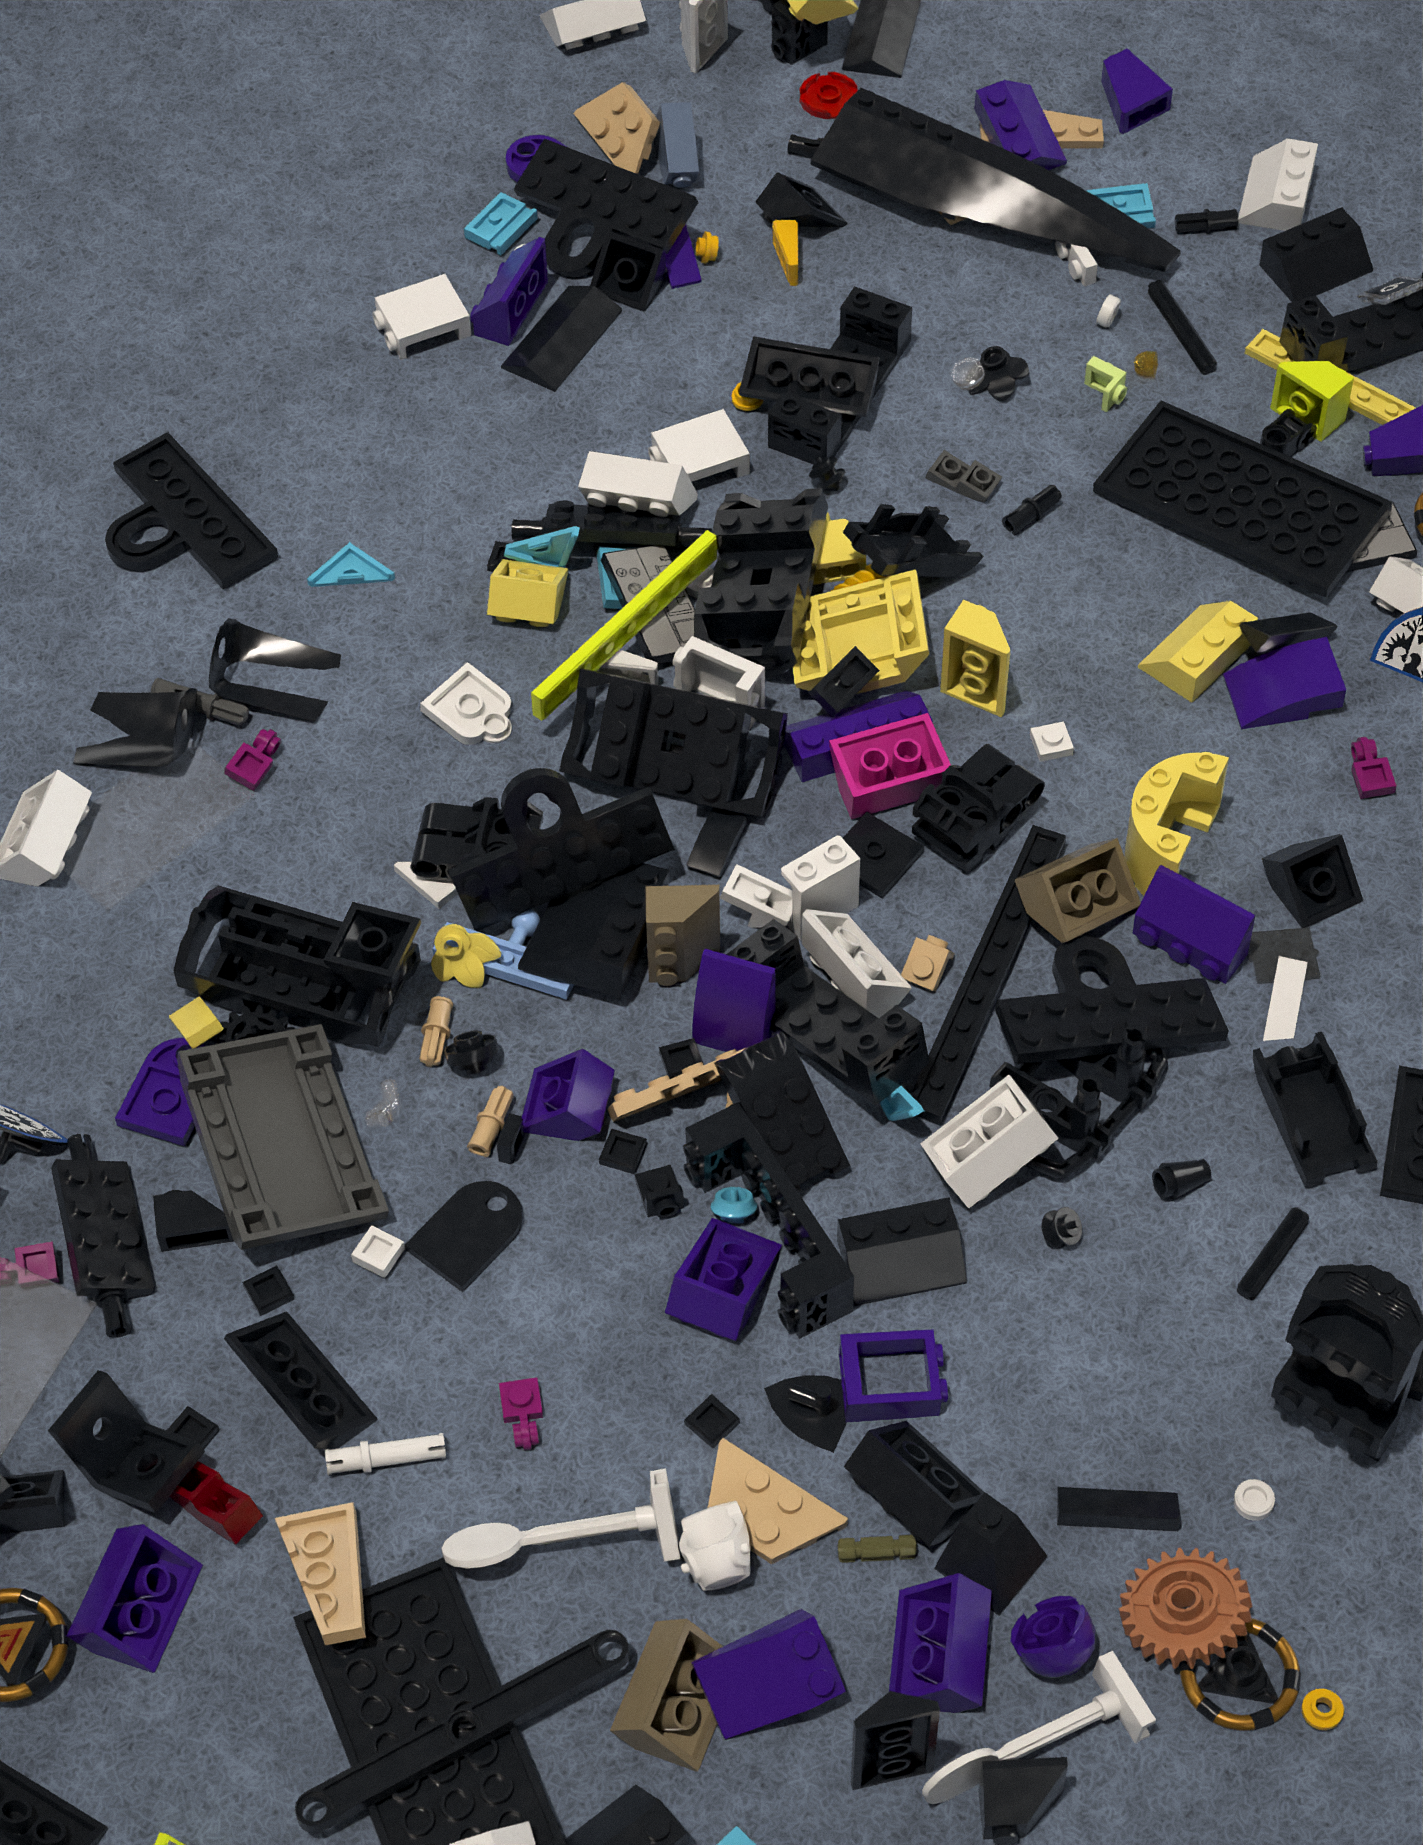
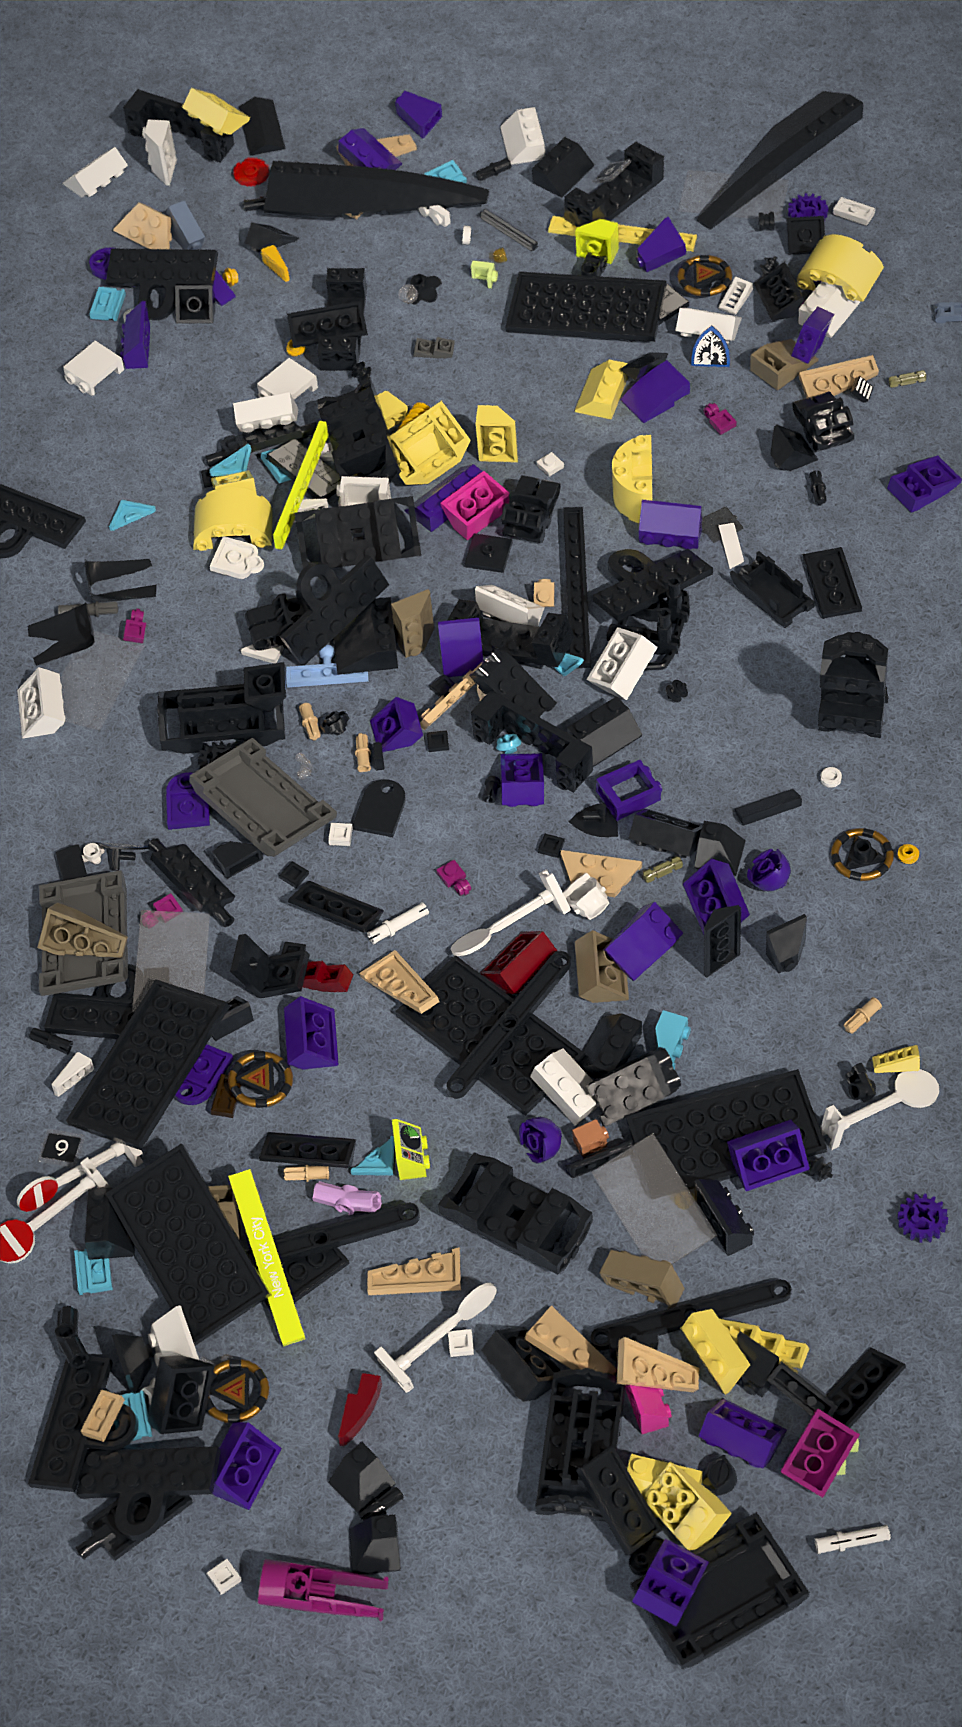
camera: 20 degrees left, 0 degrees up
(196, 1022) = (183, 763): light yellow tile -> none
(465, 960) = (307, 681): light yellow plate -> none
(499, 633) = (232, 513): none -> light yellow cylinder
(544, 1616) = (519, 961): none -> dark red slope
(563, 336) = (175, 352): black slope -> none
(660, 1192) = (467, 752): black bracket -> none
(663, 1274) = (492, 784): none -> black pin
(715, 842) = (404, 576): black slope -> none
(759, 897) = (445, 593): white slope -> none
(823, 881) = (475, 571): white panel -> none
(844, 681) = (430, 471): black plate -> none
(911, 543) = (429, 389): black piece -> none
(1031, 509) = (479, 352): black axle -> none
(1079, 890) = (604, 529): dark tan slope -> none
(1118, 1699) = (810, 886): white piece -> none
(1180, 1177) = (722, 646): black cone -> none
(1215, 1615) = (823, 834): nougat gear -> none
(1272, 1253) = (784, 664): black axle -> none
(1313, 879) = (717, 481): black slope -> none

